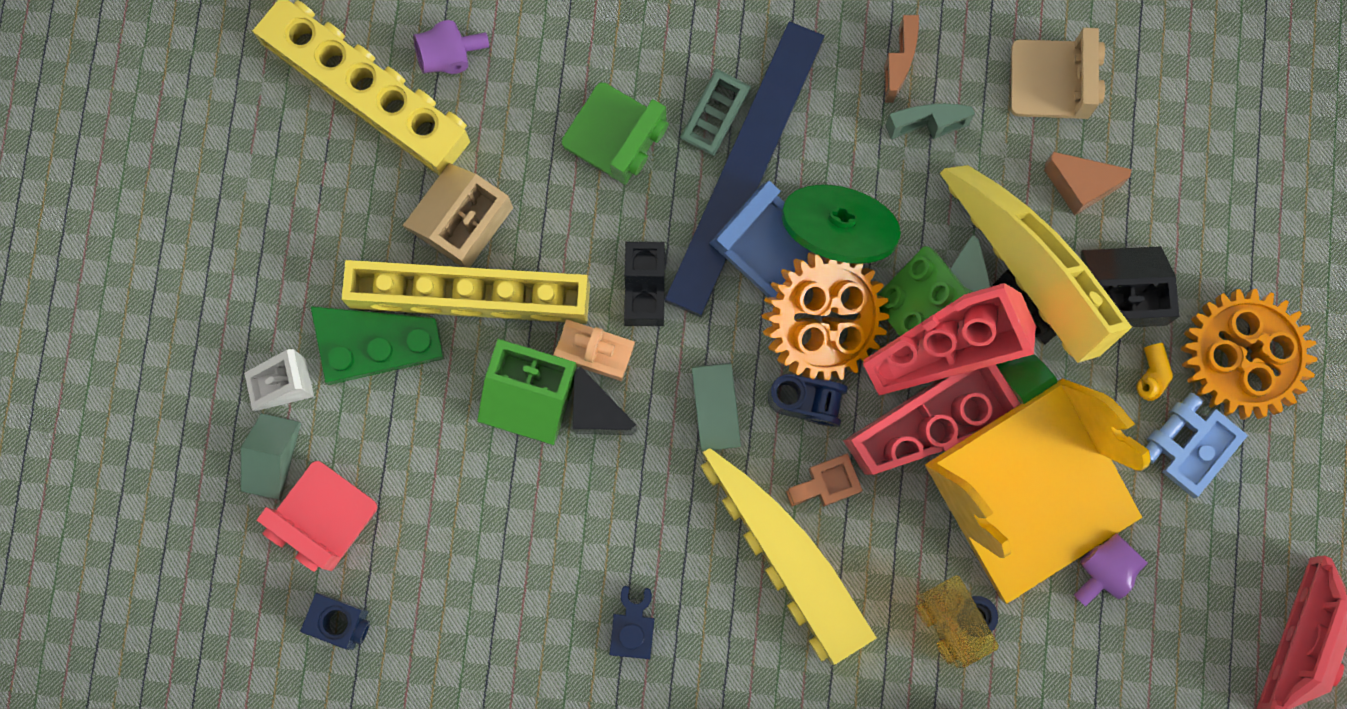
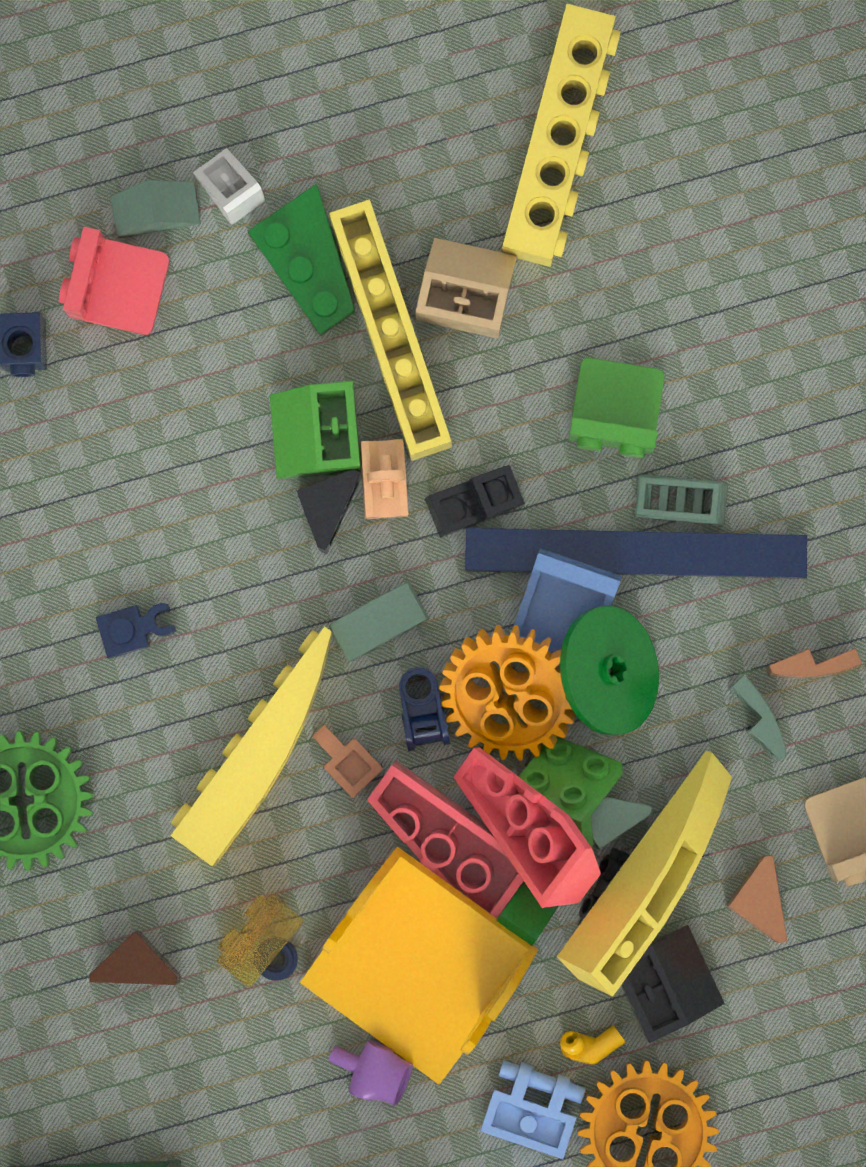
camera: 70 degrees right, 5 degrees up
(445, 49) = (633, 201): medium lavender piece -> none

